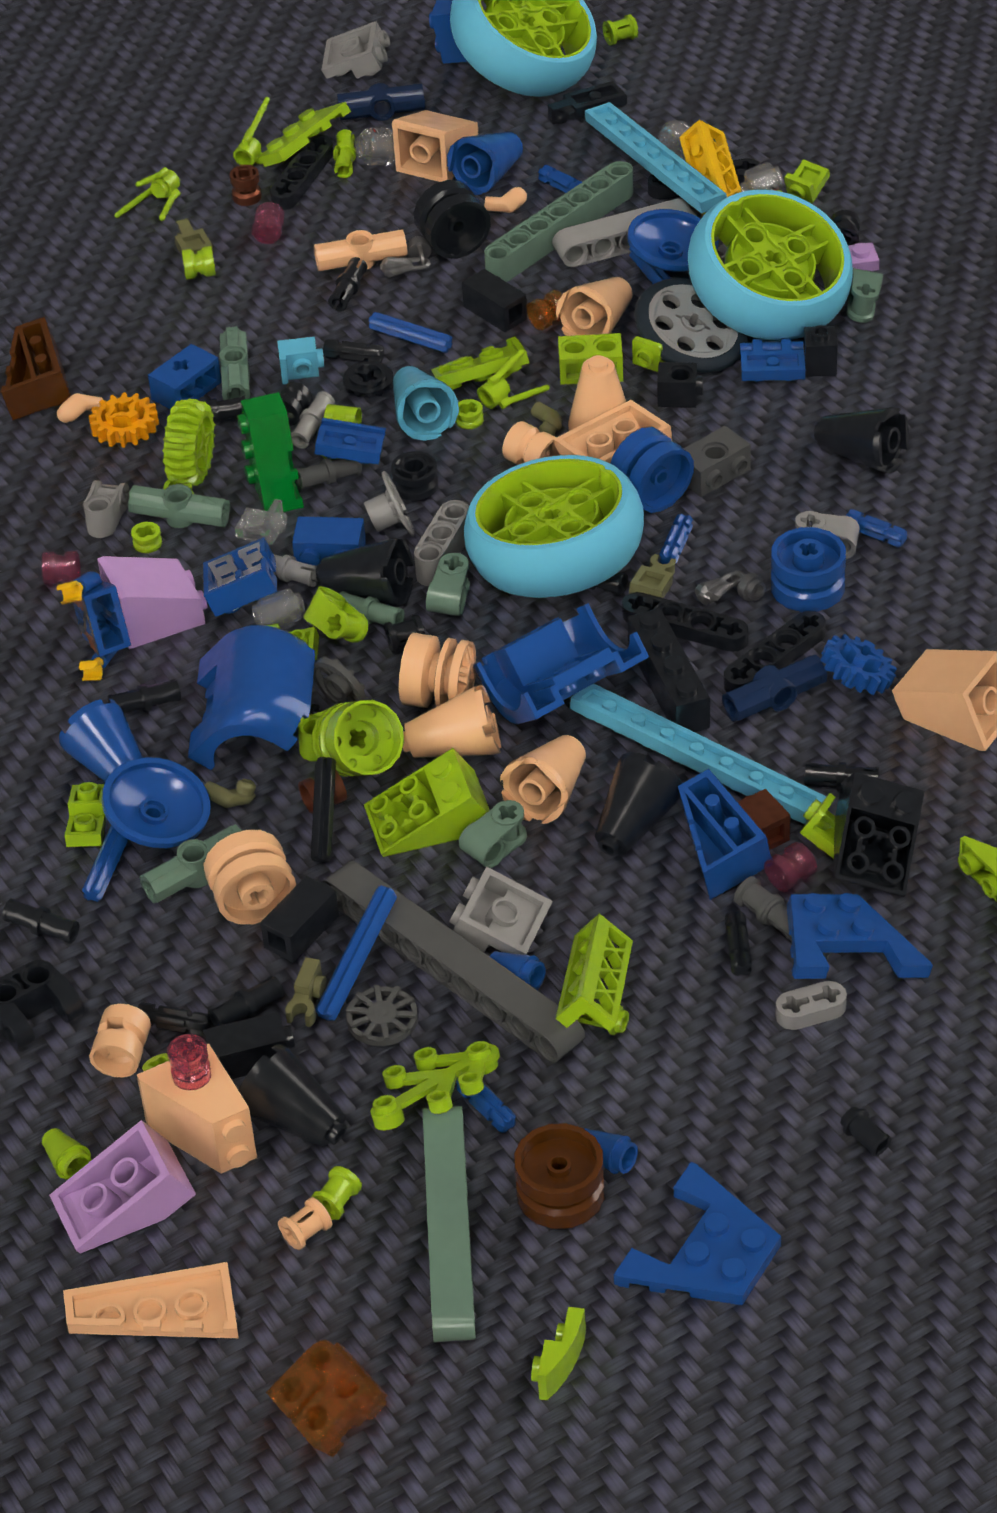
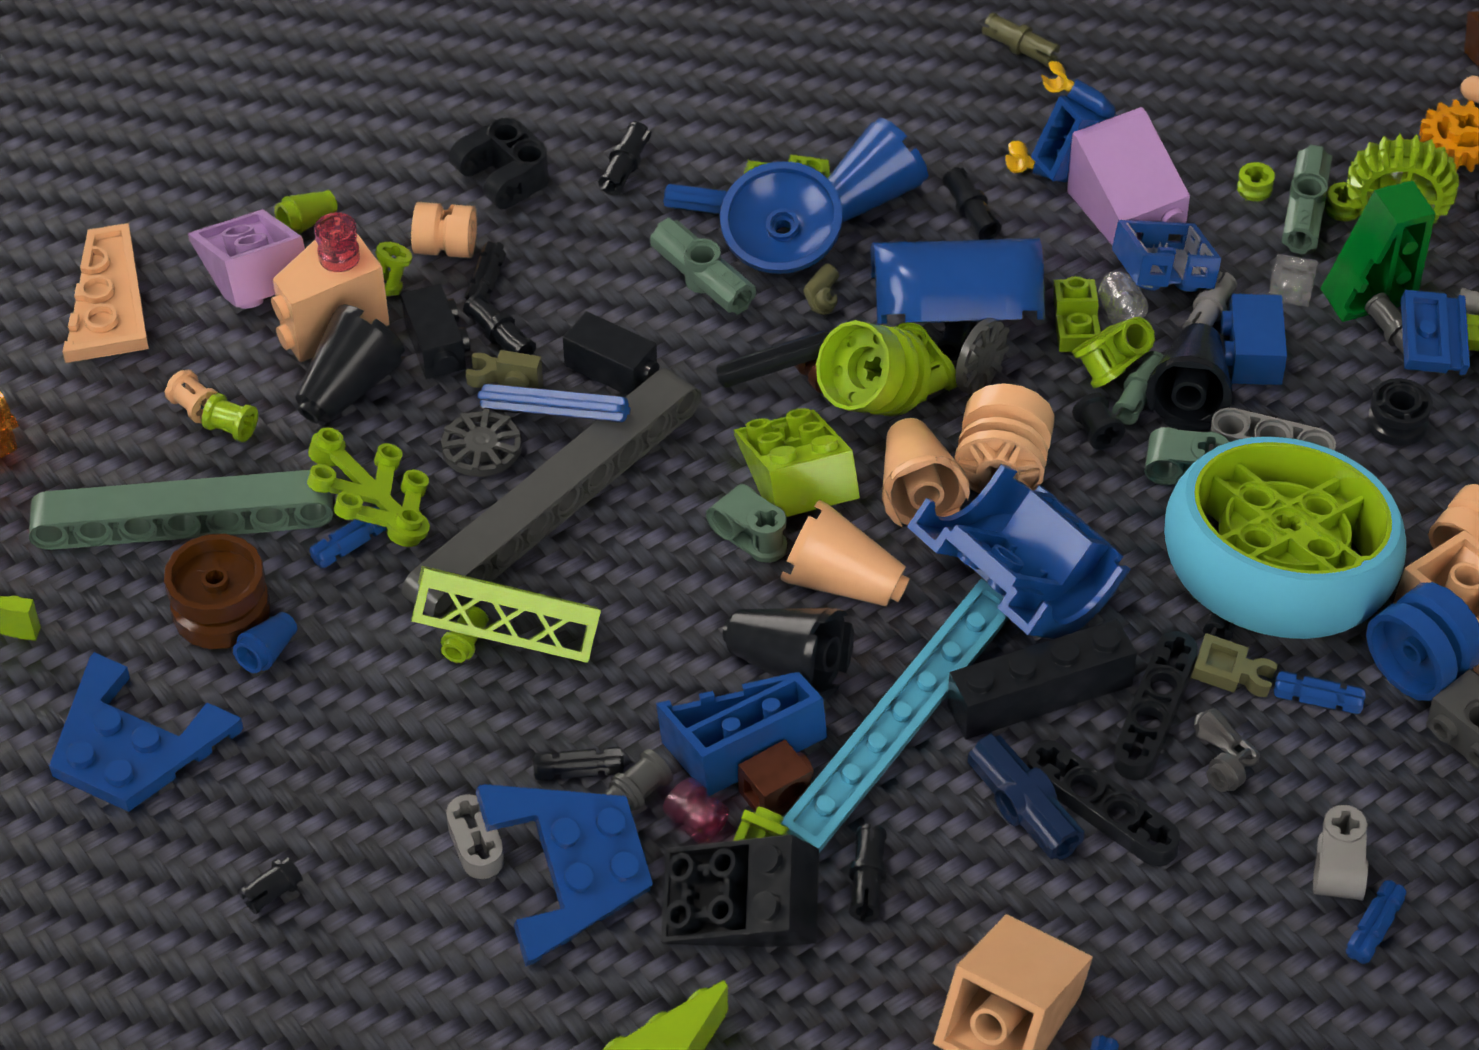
camera: 85 degrees right, 5 degrees up
(59, 568) = (1182, 111): clear pink wheel -> none
(105, 508) = (1292, 130): light grey piece -> none
(248, 875) = (661, 298): light nougat wheel -> none
(388, 508) = (1326, 386): light grey wheel -> none
(500, 913) = (616, 529): light grey plate -> none
(524, 966) = (535, 554): blue cone -> none
(808, 569) = (1256, 828): blue wheel -> none
(858, 664) = (1048, 878): blue gear -> none

